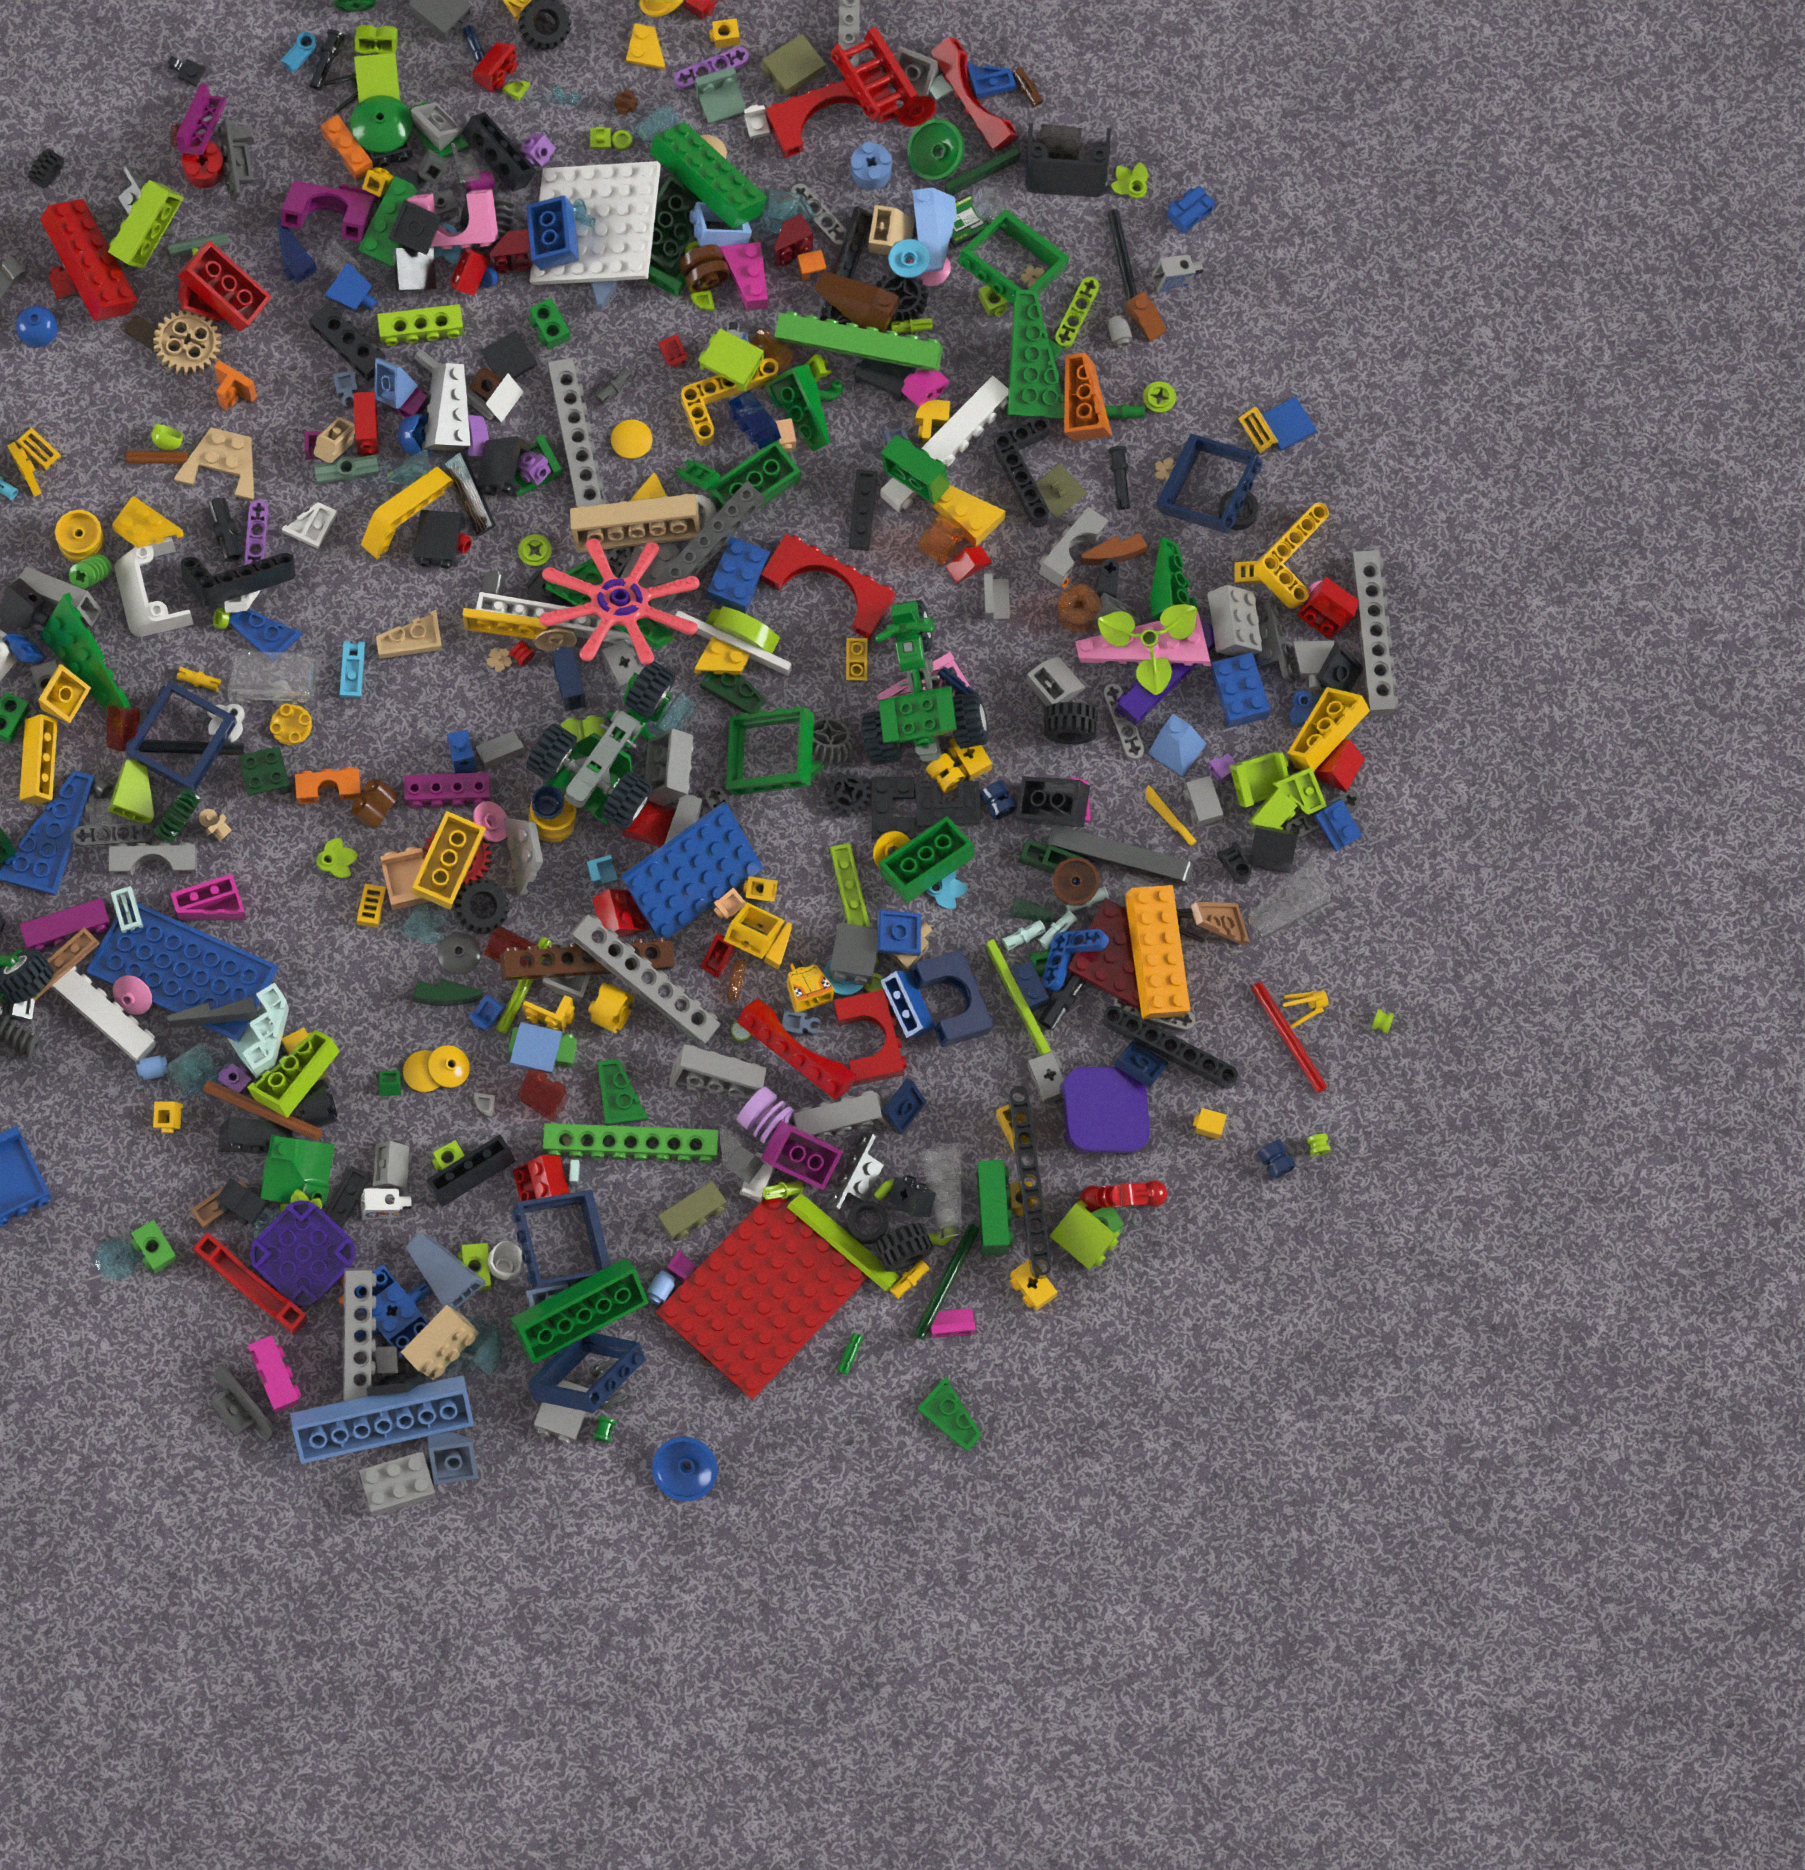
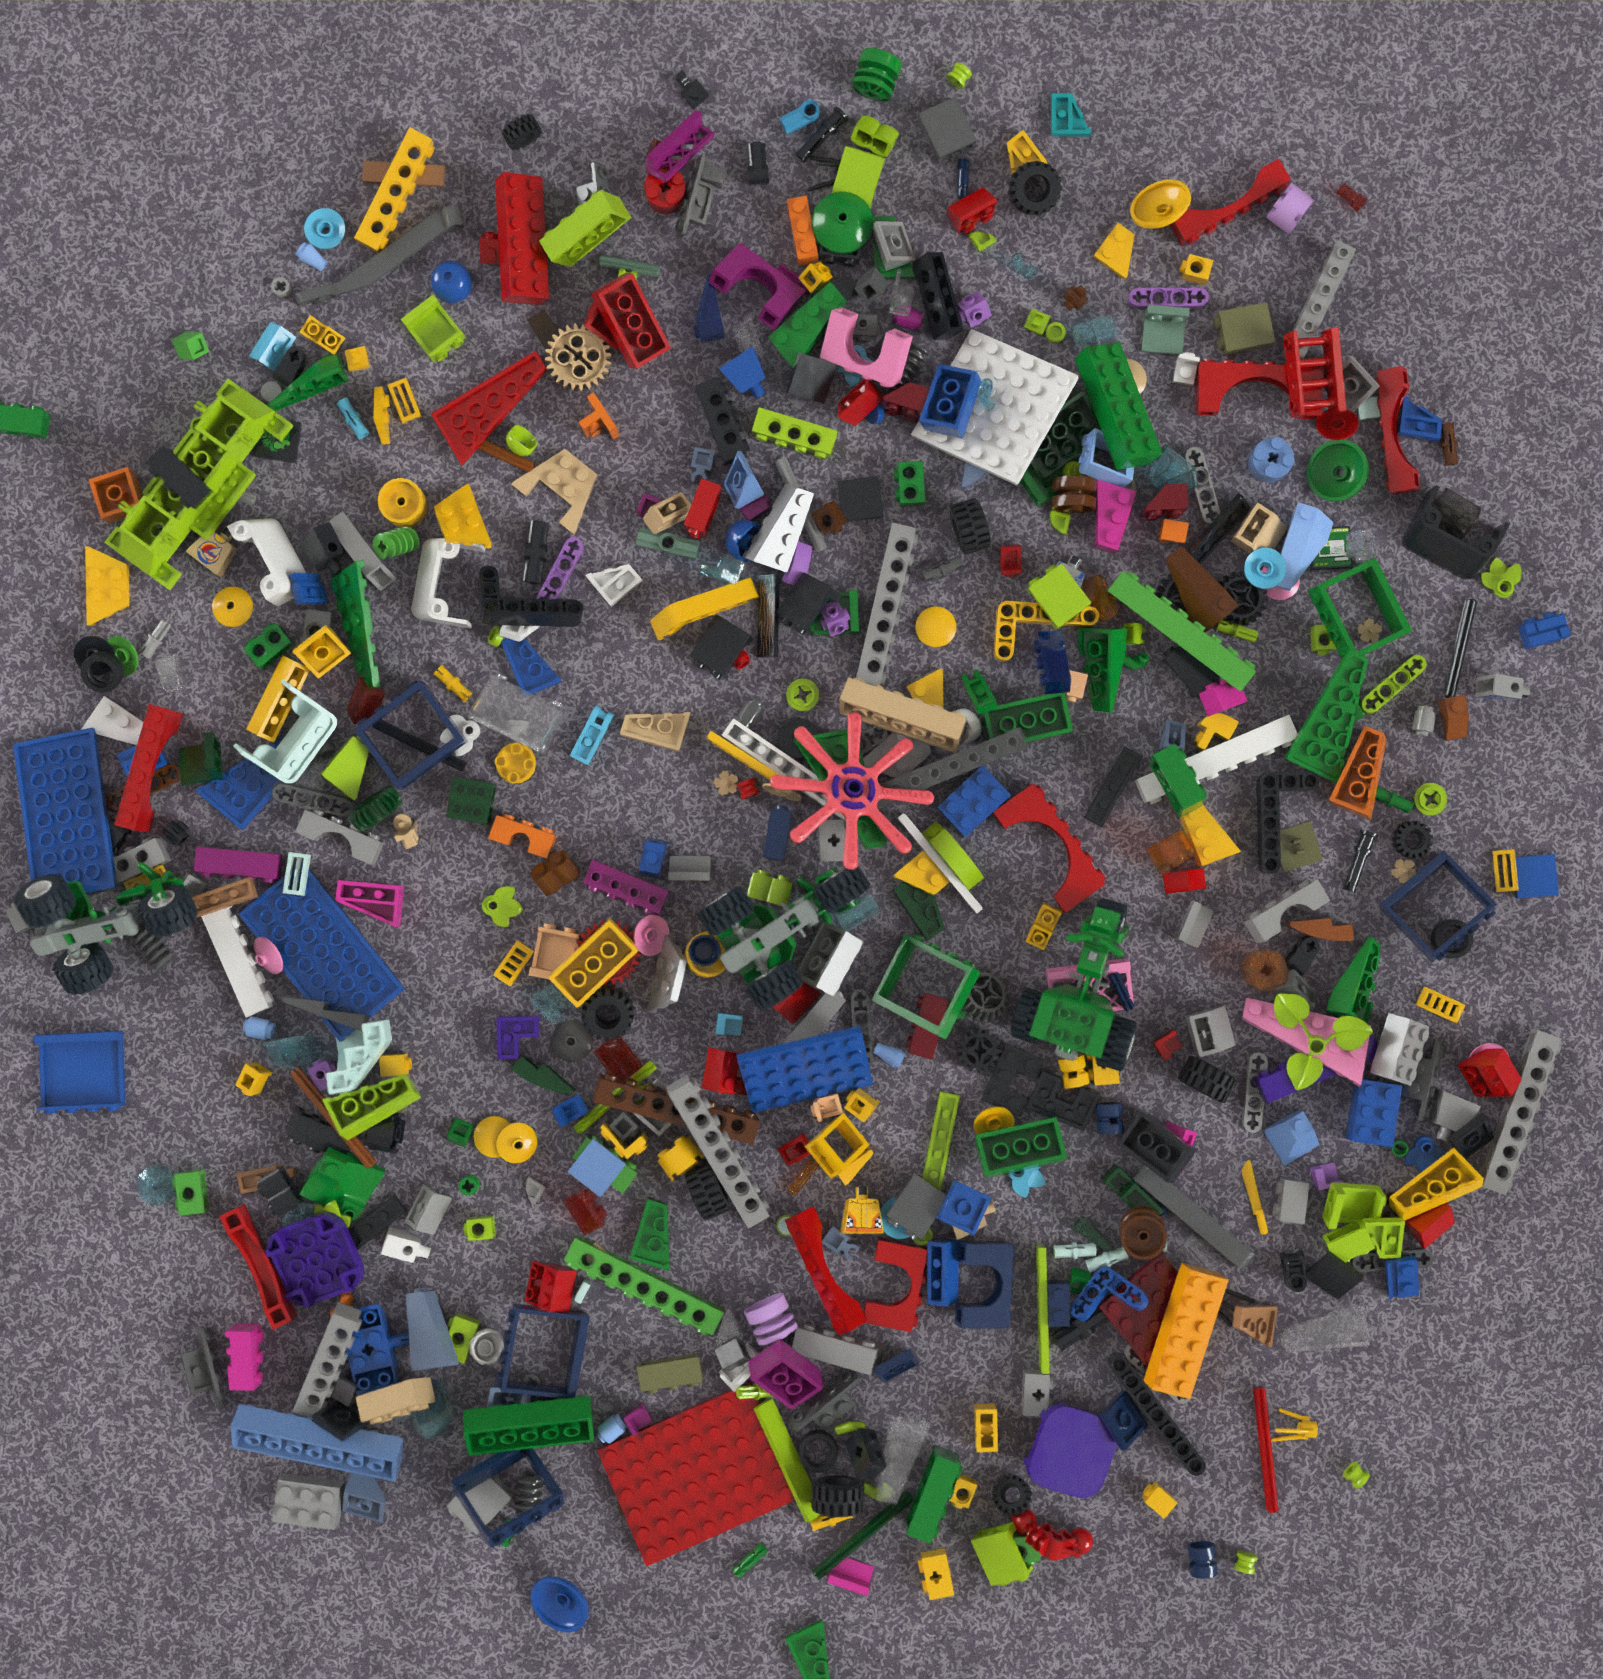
camera: 30 degrees right, 15 degrees up
(39, 374) = (433, 329): none -> lime panel
(80, 782) = (299, 744): none -> light aqua windscreen
(114, 429) = (477, 413): none -> red wing
(279, 110) = (757, 166): none -> black piece
(396, 962) = (511, 1029): none -> dark purple panel
(415, 227) = (827, 341): black tile -> none
(423, 1117) = (466, 1190): none -> green bush
(471, 1170) = (492, 1250): black brick -> none
(504, 397) = (838, 538): white sticker -> none
(546, 999) = (625, 1126): none -> dark grey brick
(621, 334) = (970, 526): none -> black tyre
(650, 1024) = (707, 1192): none -> black tyre
(716, 1073) = (747, 1260): light grey wedge -> none
(768, 834) = (891, 1055): none -> light blue cone
(791, 801) = (924, 1042): none -> dark red brick
(982, 171) = (1370, 509): dark green tile -> none
(1021, 714) = (1167, 1044): none -> red panel
(1030, 1171) = (975, 1503): black beam -> none
(1062, 1171) = (1023, 1501): none -> black tyre
(1159, 450) = (1424, 839): none -> black tyre
(1277, 570) = (1458, 1011): yellow beam -> none
(1280, 707) = (1396, 1151): none -> green hinge

